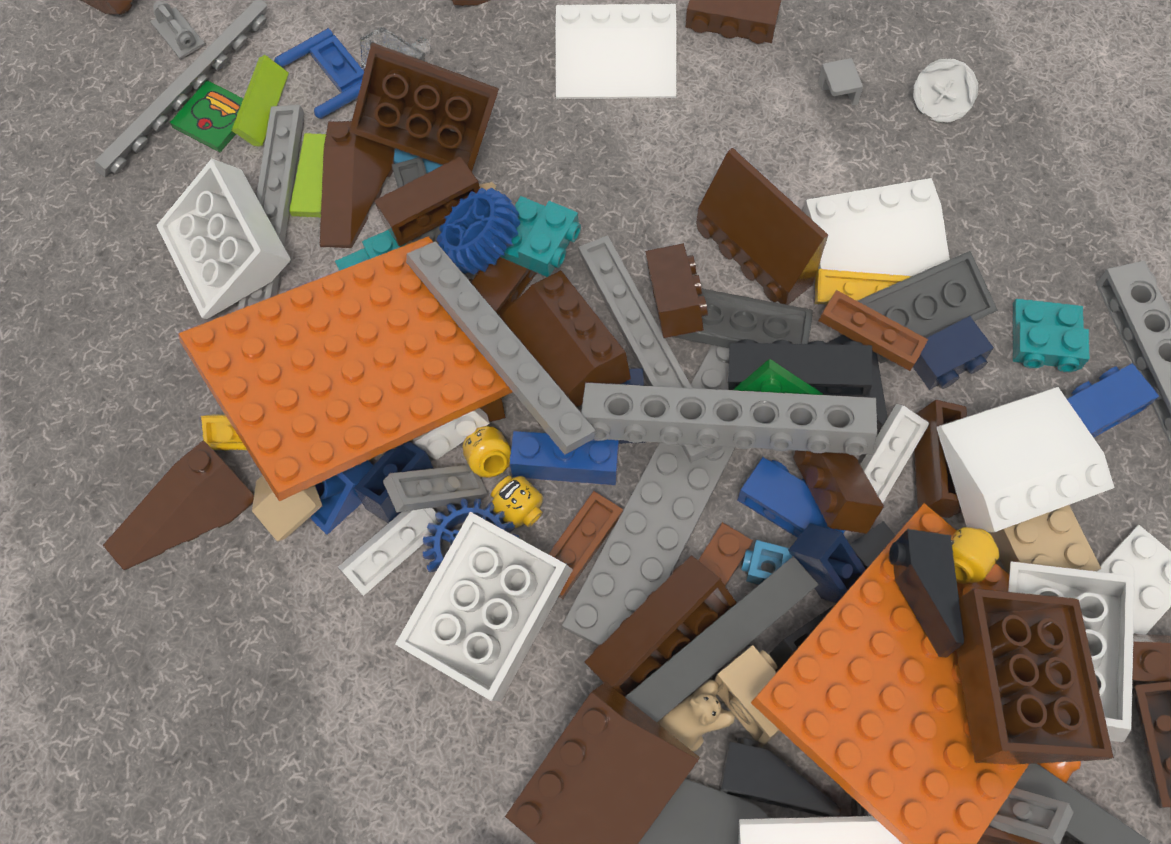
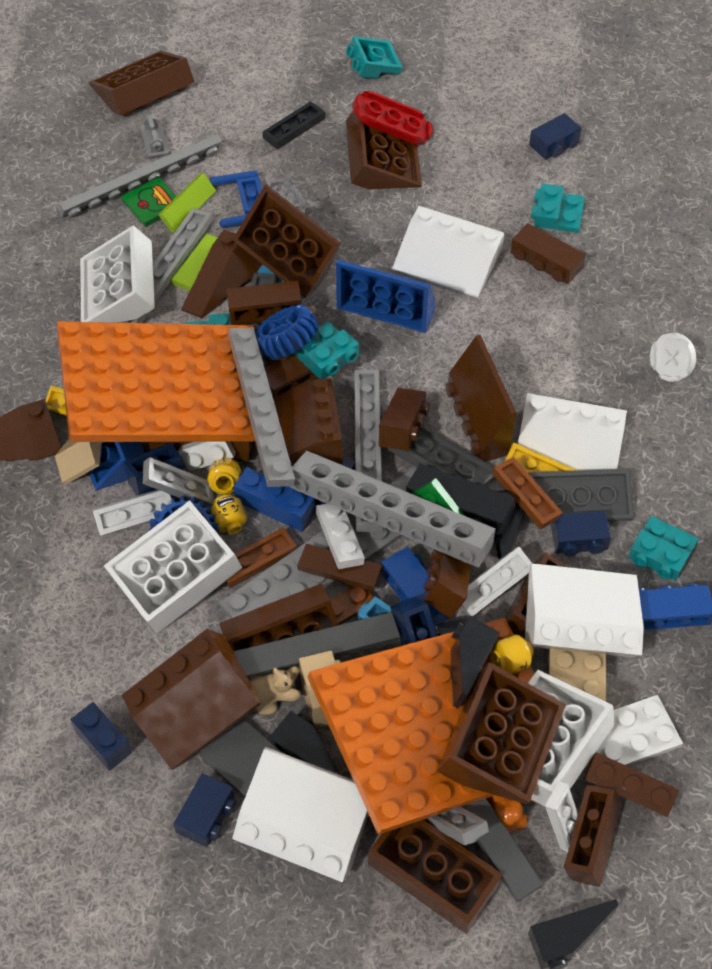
camera: 20 degrees right, 10 degrees down
(573, 138) = (384, 296): none -> blue slope
(675, 478) = (340, 536): none -> white plate
(692, 518) = (321, 563): none -> reddish brown tile
(841, 79) = (601, 323): light grey panel -> none
(1138, 743) = (562, 814): none -> white tile

